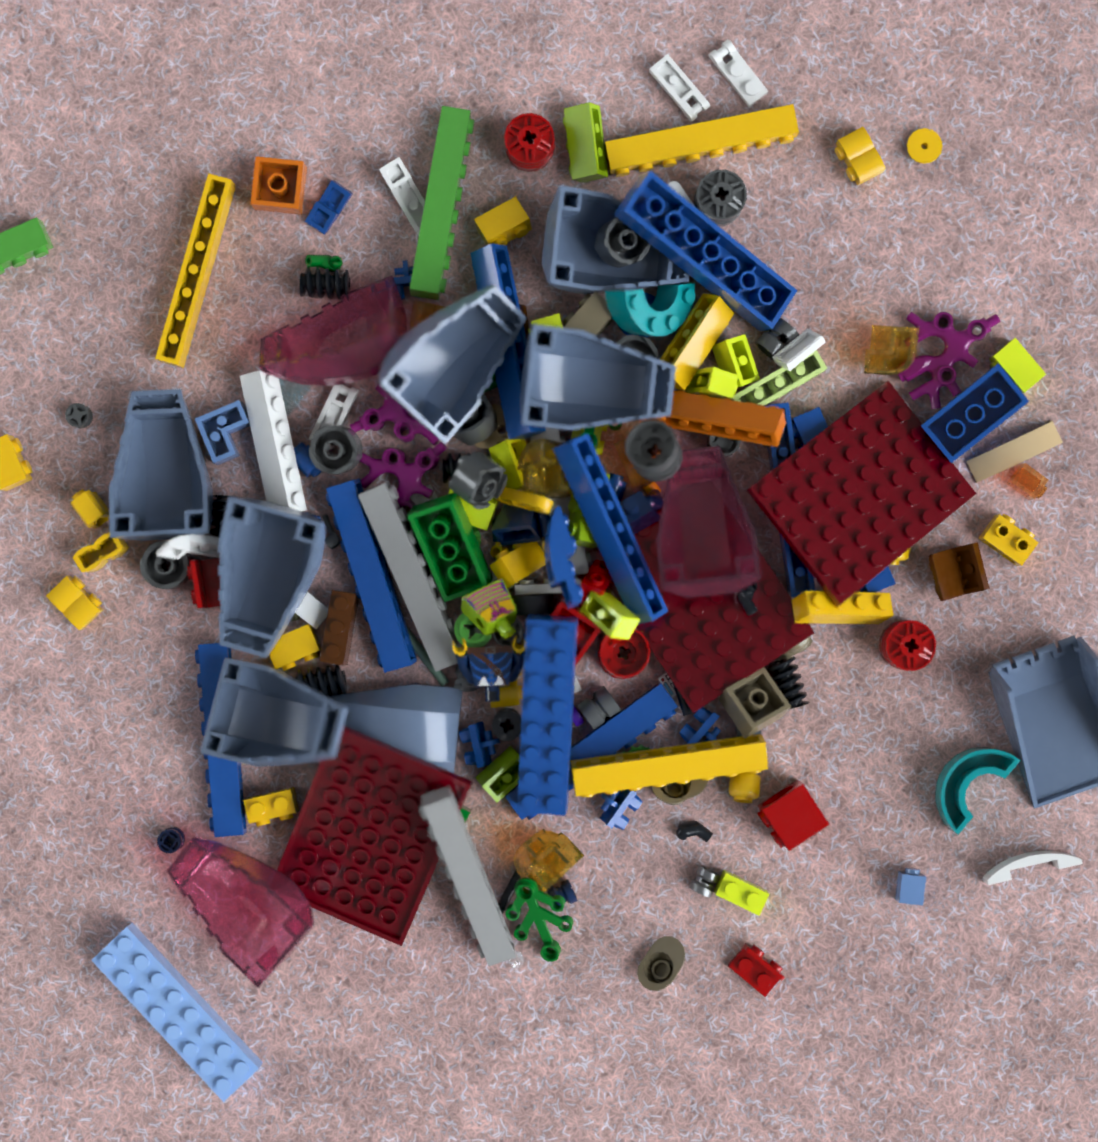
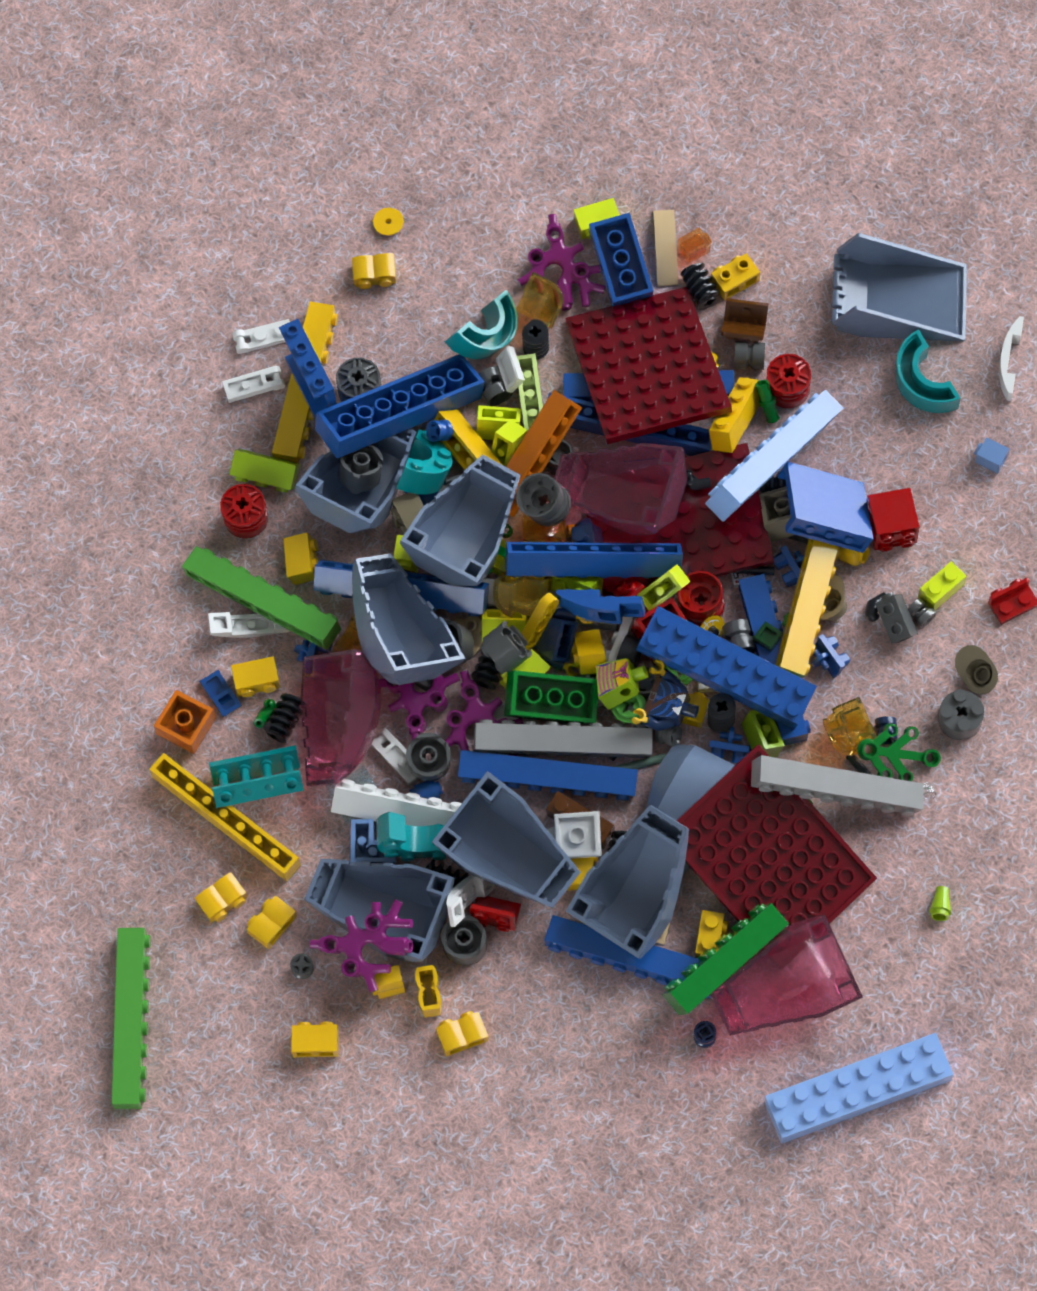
camera: 60 degrees left, 20 degrees down
(110, 366) = (271, 922): none -> yellow brick
(115, 305) = (221, 897): none -> yellow brick
(117, 477) = (357, 938): none -> magenta plant
(234, 465) = (406, 841): none -> teal brick
(238, 837) = (725, 959): none -> green brick
(262, 273) = (253, 766): none -> teal fence
(315, 634) = (579, 834): none -> white tile
(357, 235) = (255, 677): none -> yellow brick
(401, 1018) = (940, 906): none -> lime cone
(596, 676) = (714, 625): none -> piece
(608, 738) = (767, 636): none -> dark green tile
(614, 977) = (960, 703): none -> dark grey brick
(685, 860) = (896, 617): none -> dark grey brick
(696, 306) = (439, 430): none -> blue wheel
(698, 138) = (307, 368): none -> blue panel
(772, 746) = (827, 507): none -> panel
(805, 669) = (772, 454): none -> light blue brick
(838, 368) = (535, 338): none -> black piece
(839, 319) = (500, 330): none -> teal brick
(874, 632) = (767, 401): none -> green pin
(922, 592) = (749, 355): none -> dark grey wheel
(984, 506) = (700, 285): none -> black piece

